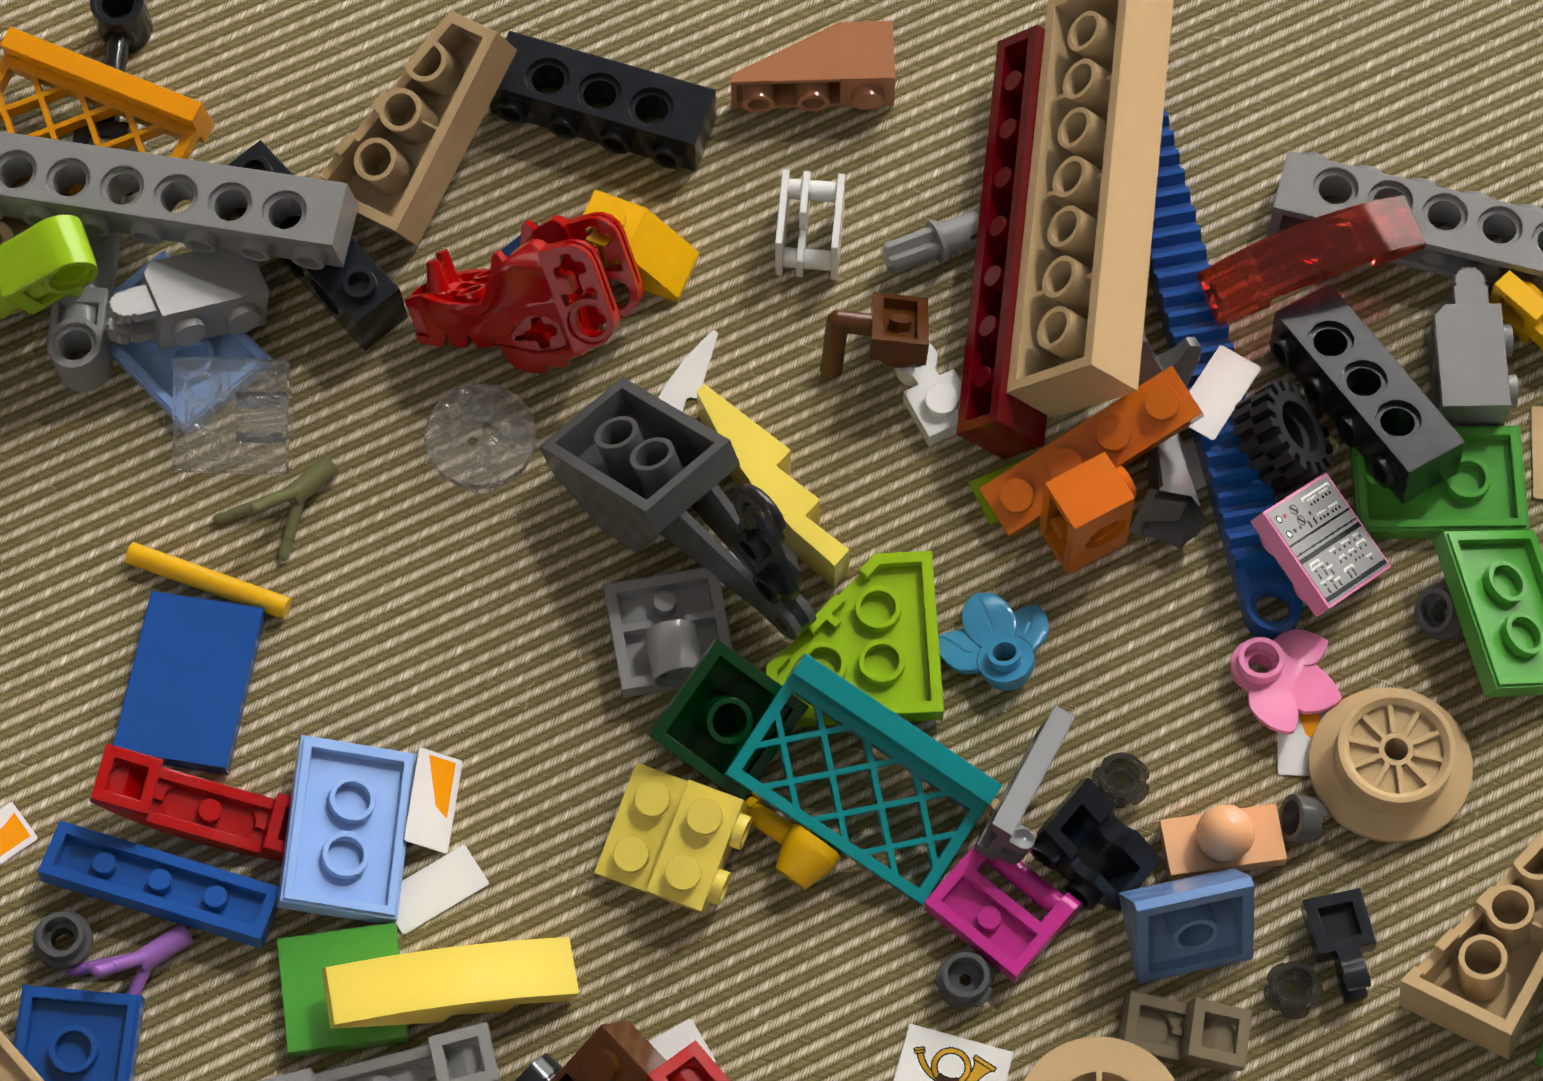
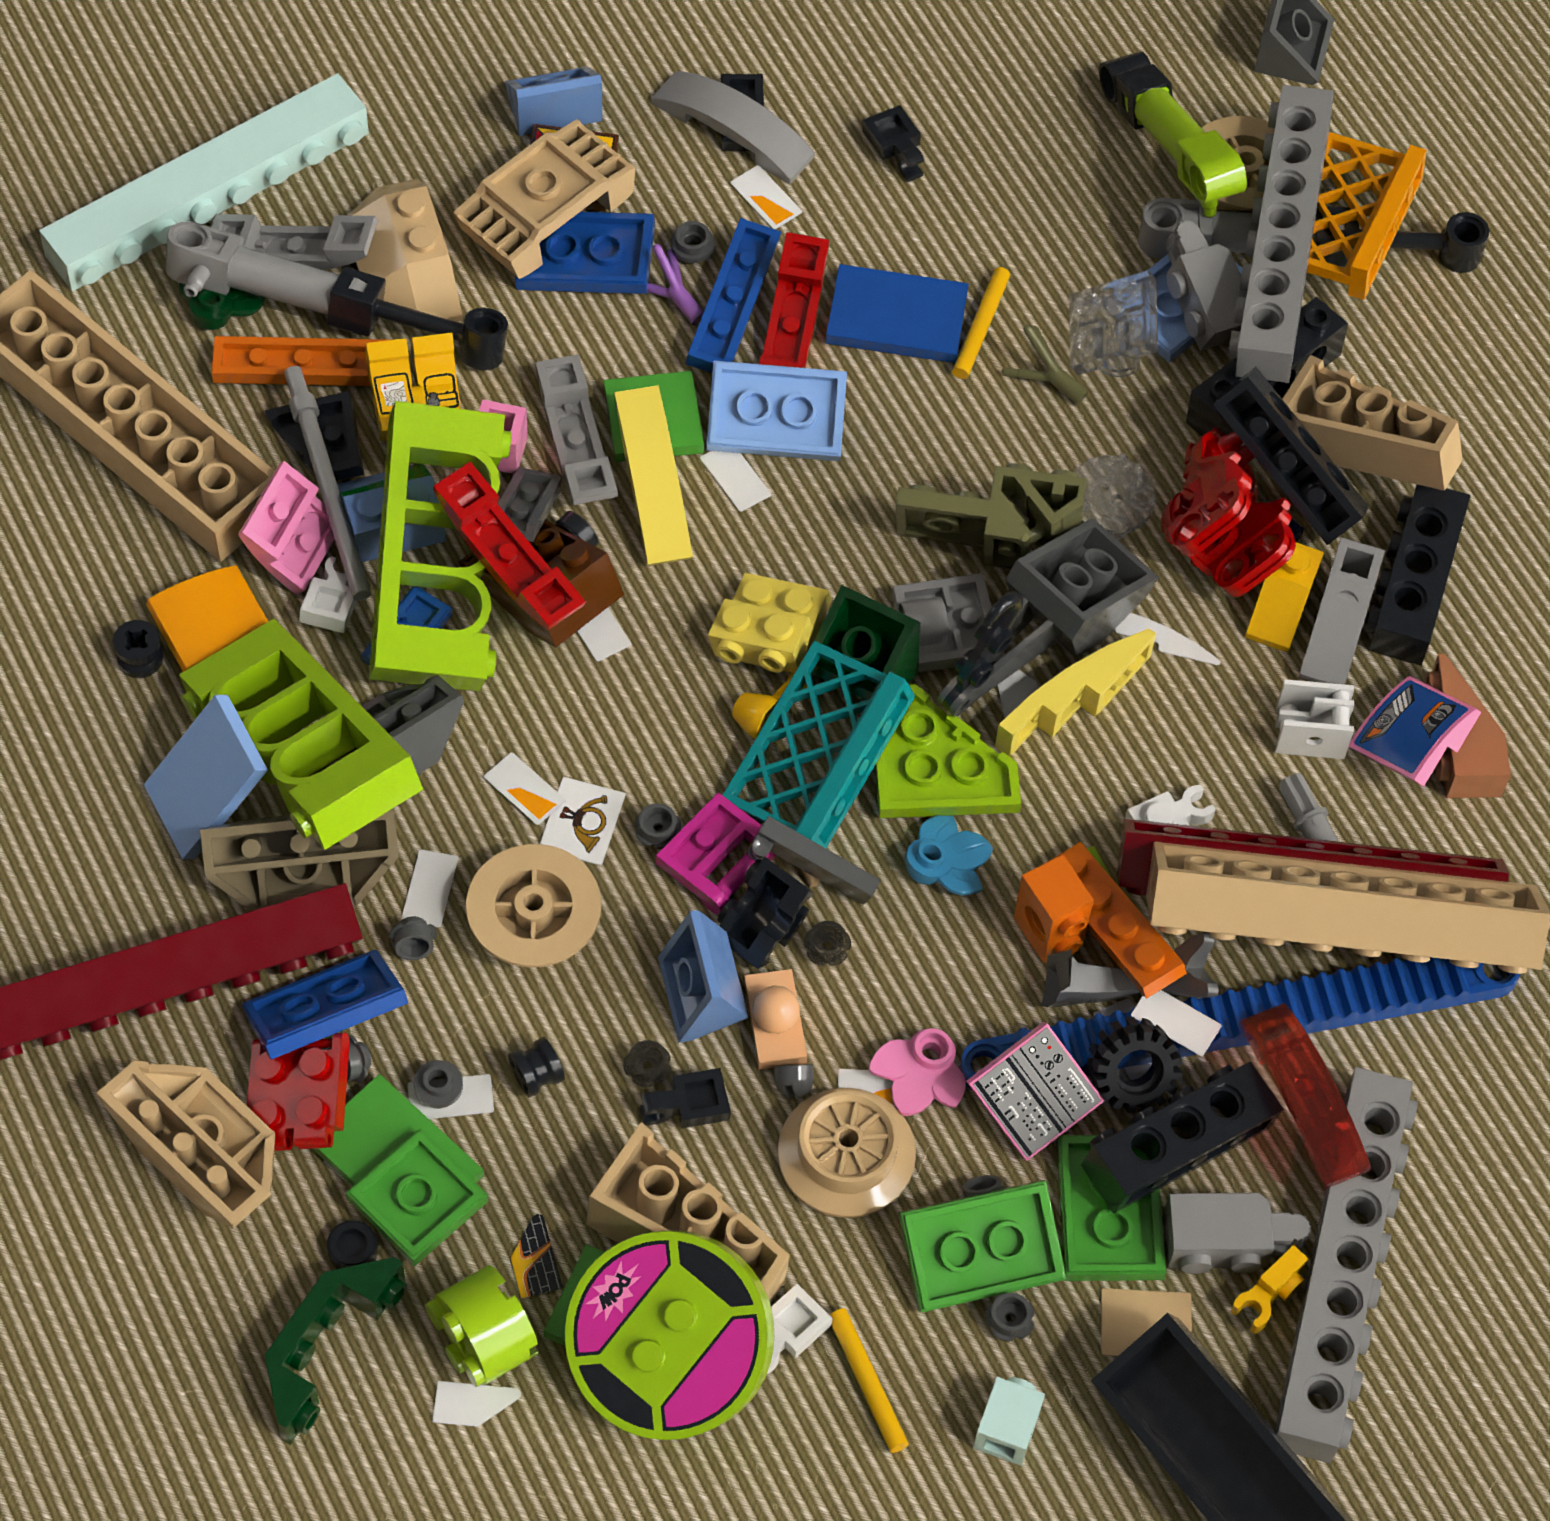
camera: 85 degrees right, 5 degrees down
(433, 800) = (804, 469): white sticker -> none
(462, 212) = (1291, 455): none -> black brick
(538, 540) = (1021, 511): none -> olive piece
(665, 183) = (1342, 612): none -> light grey slope
(830, 114) = (1414, 729): none -> slope
(896, 331) = (1216, 775): reddish brown plate -> none
(1187, 1033) = (613, 982): dark tan slope -> none

